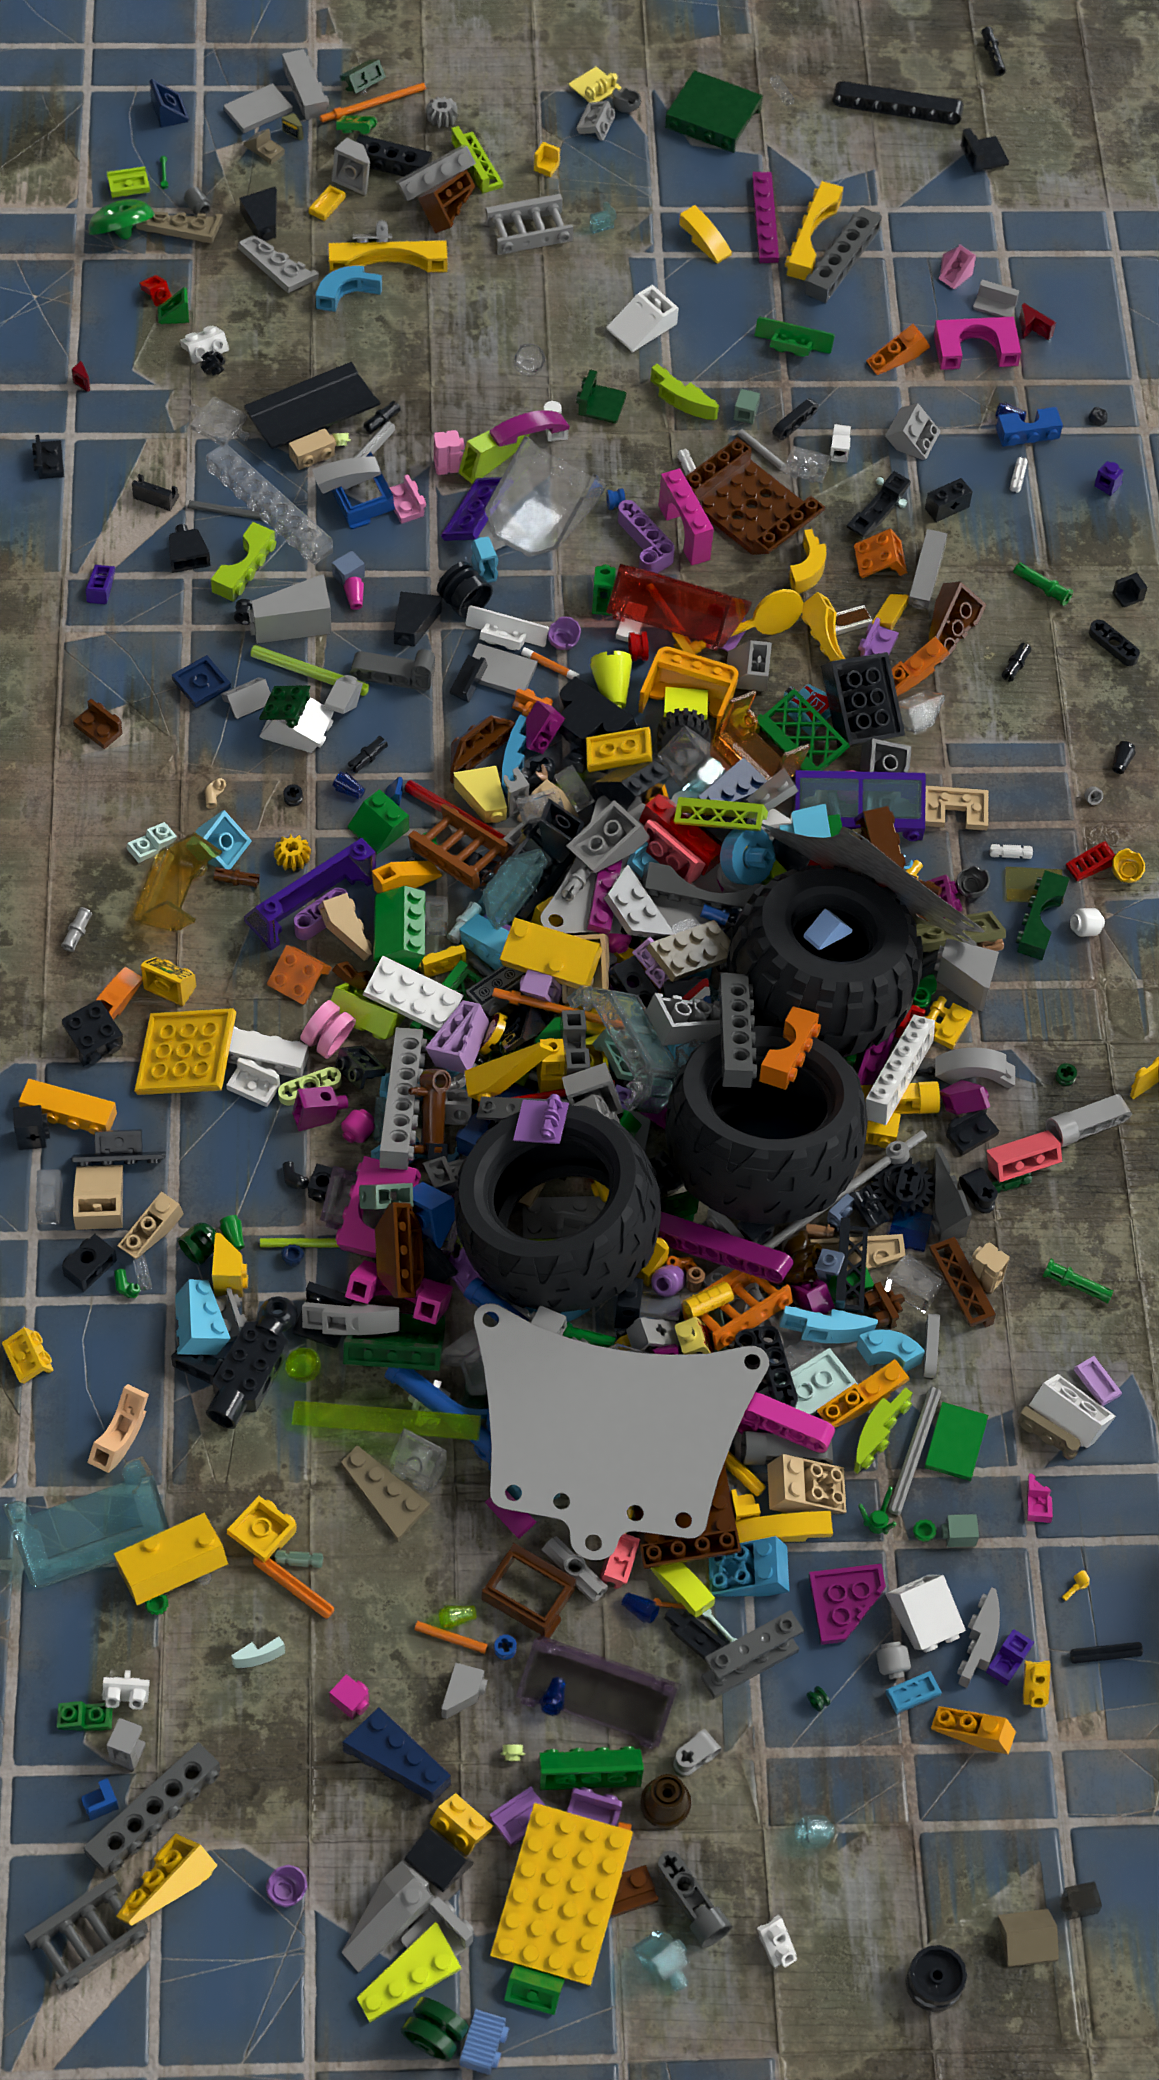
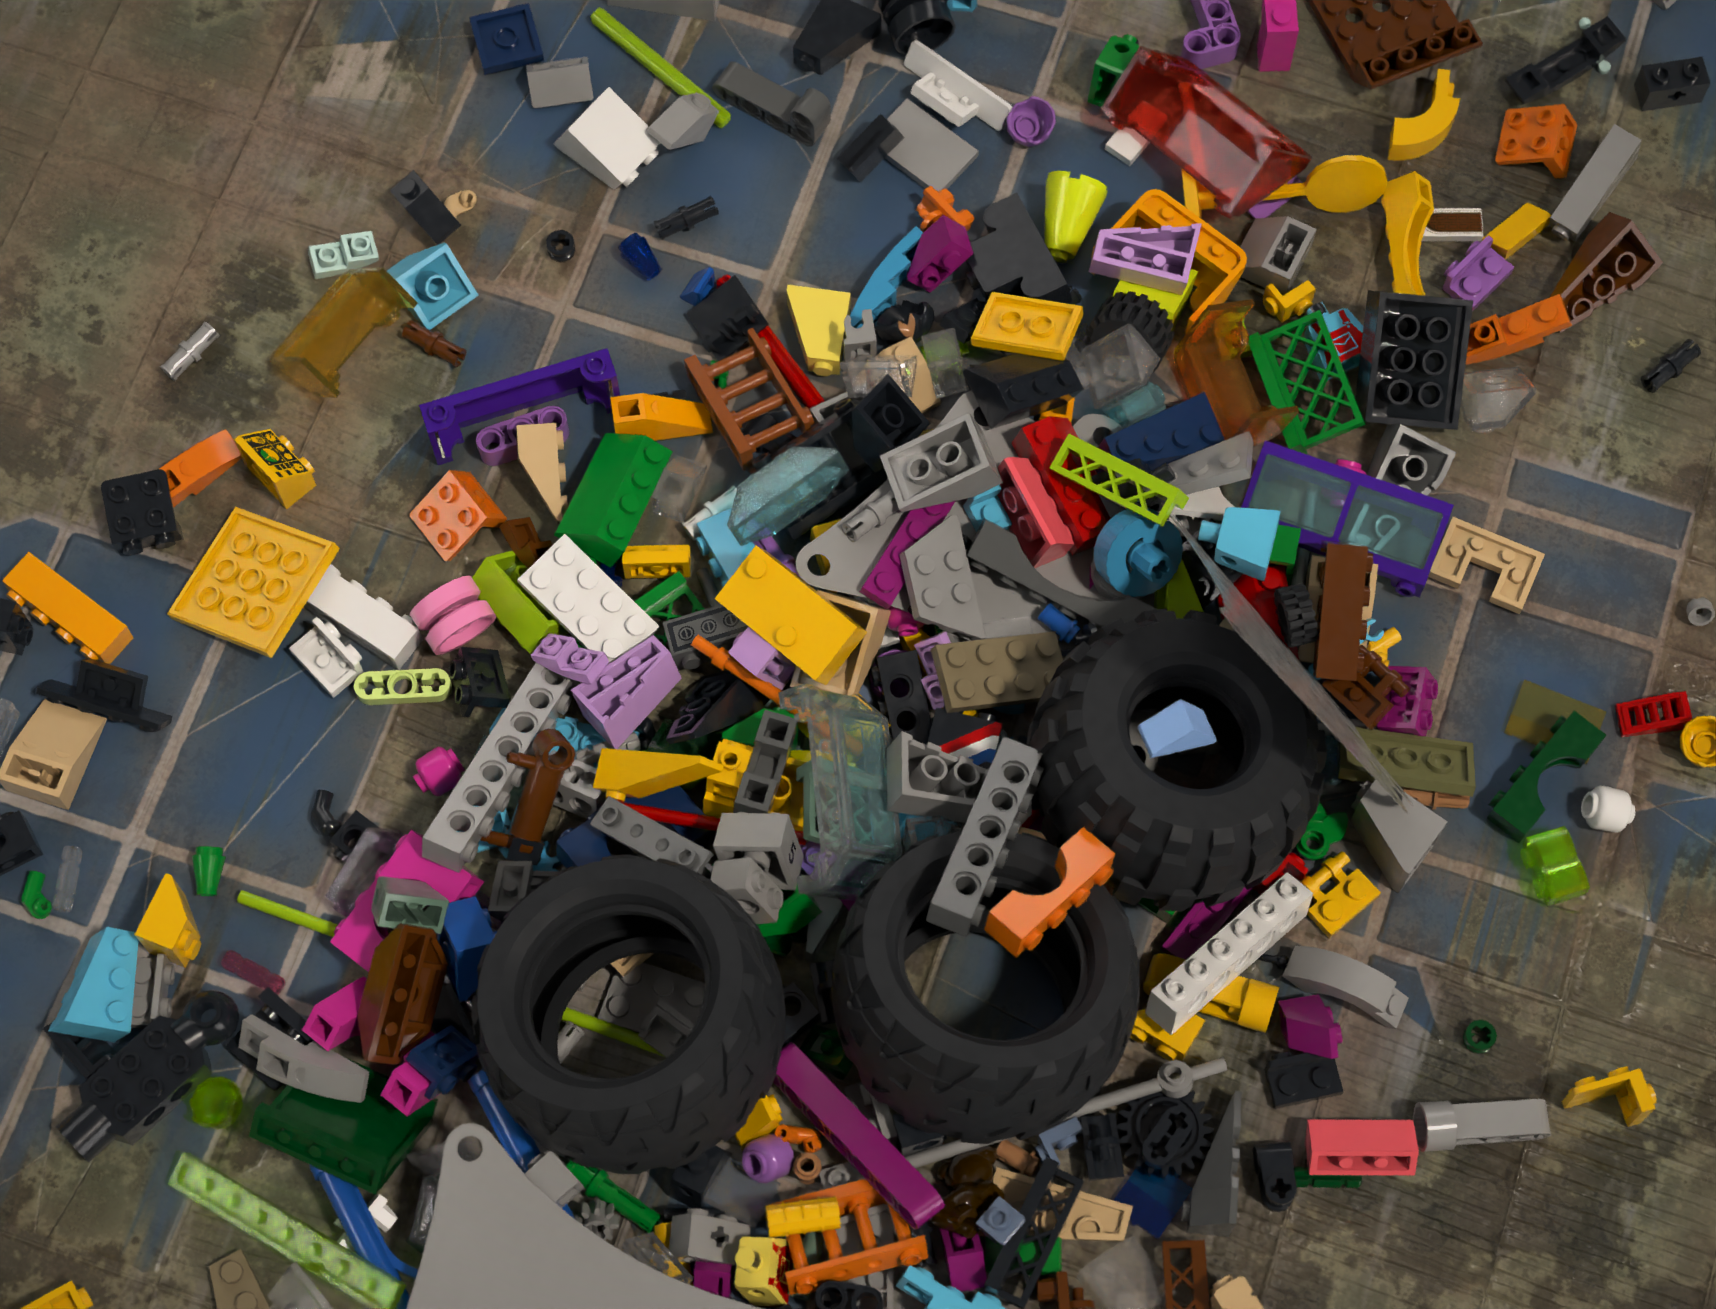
camera: 25 degrees right, 10 degrees up
(99, 724) = (344, 61): reddish brown bracket -> none
(152, 1225) = (101, 824): tan slope -> none
(196, 795) = (425, 207): none -> black slope
(198, 1242) = (148, 868): dark green helmet -> none
(286, 704) = (592, 113): dark green hinge -> none
(287, 1283) = (252, 972): none -> clear pink axle
(292, 852) = (521, 331): yellow gear -> none
(292, 1255) = (273, 931): dark blue piece -> none
(317, 1107) = (396, 724): magenta torso -> none
(379, 821) = (658, 325): green slope -> none
(411, 1031) = (565, 658): none -> lavender slope
(423, 804) = (725, 318): none -> black hinge
(444, 1283) = (444, 1060): none -> dark blue bracket
(479, 743) = (840, 252): reddish brown wedge -> none
(493, 1033) = (678, 696): yellow tile -> none
(541, 1120) = (639, 888): medium lavender hinge -> none
(549, 663) = (996, 160): orange bar -> none
(638, 646) = (1127, 173): red wheel -> none
(678, 685) = (1147, 257): none -> lavender wedge
(769, 695) = (1292, 303): none -> yellow bracket
(973, 882) = (1463, 690): dark grey hair -> none
(1011, 851) = (1541, 658): white axle -> none
(1070, 964) = (1555, 866): none -> clear neon green brick

